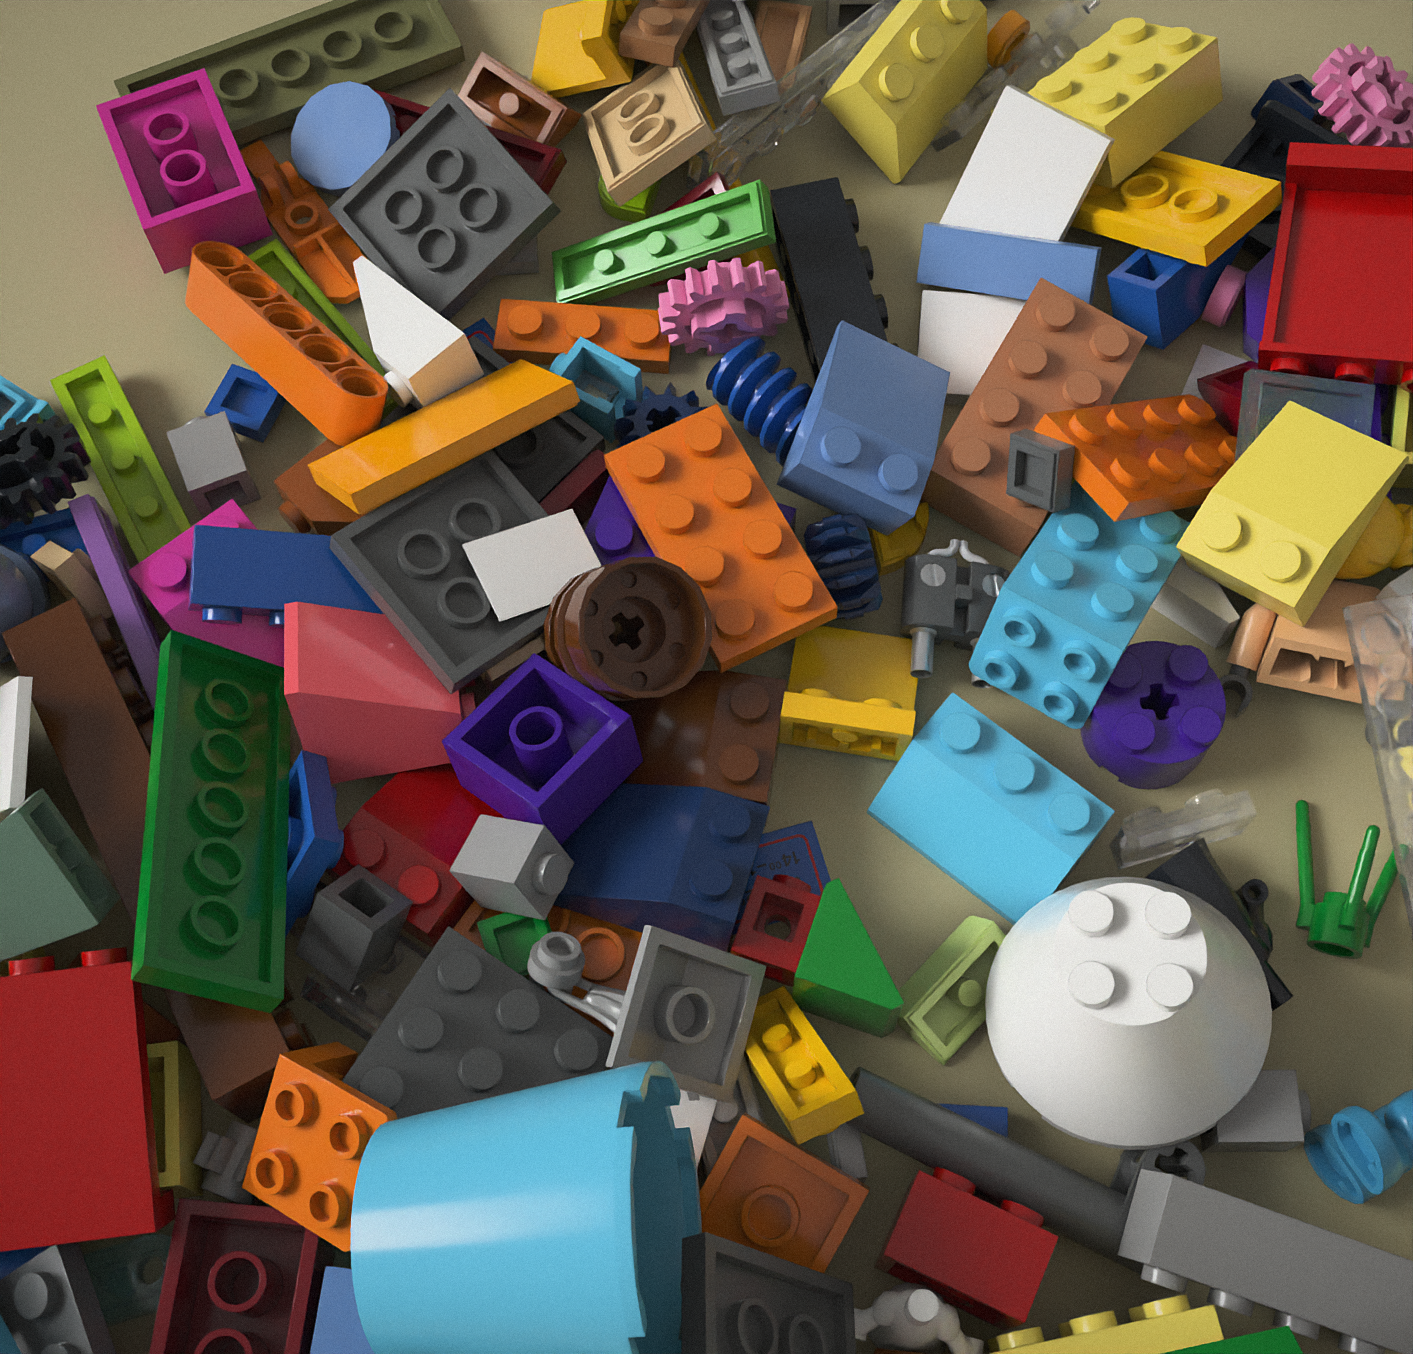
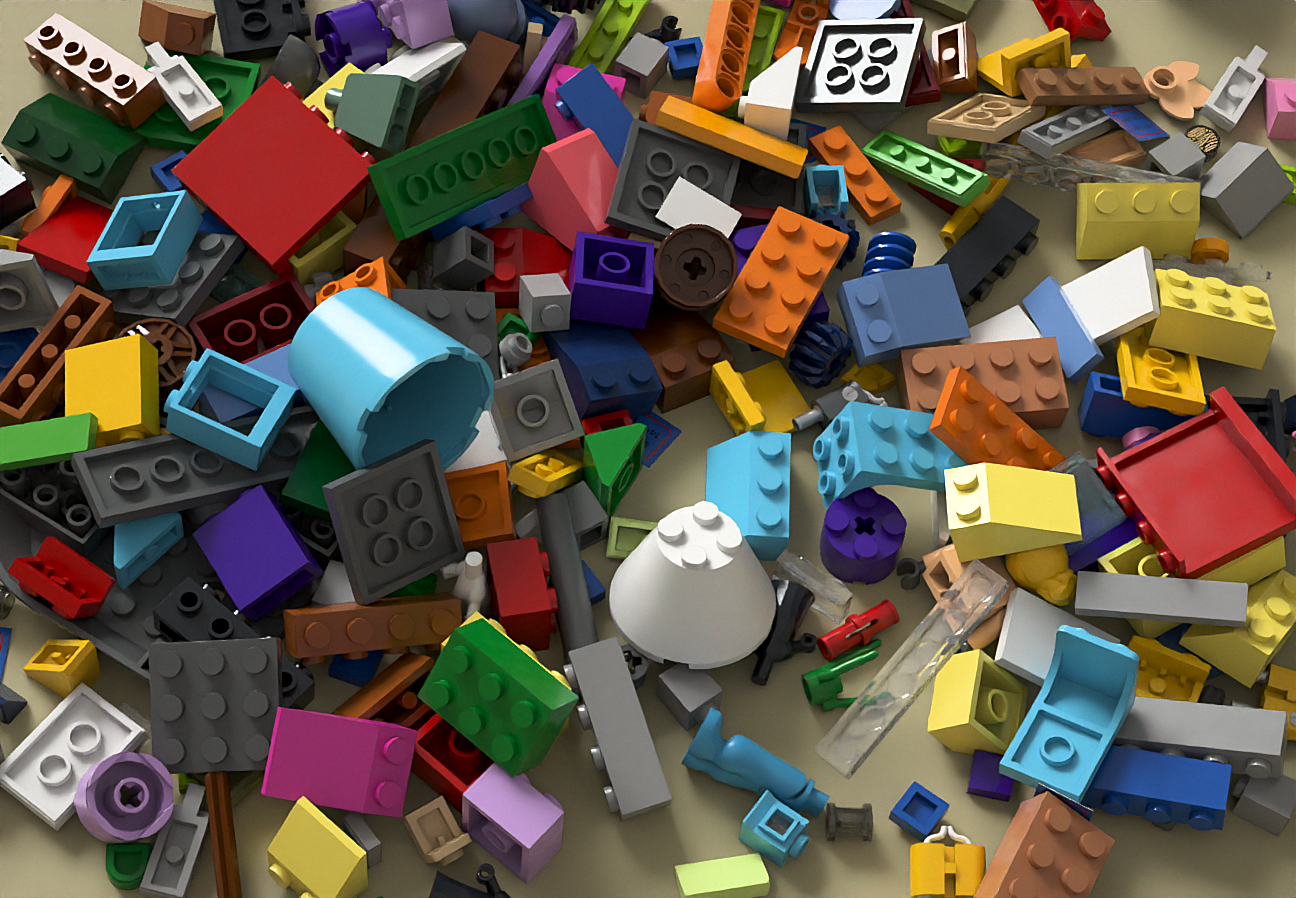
camera: 45 degrees right, 10 degrees down
(183, 403) = (667, 30): none -> black hand
(722, 306) = (915, 214): bright pink gear -> none
(875, 1047) = (587, 514): none -> dark grey brick
(1040, 470) = (932, 386): dark grey tile -> none
(1280, 819) = (836, 643): none -> red pin

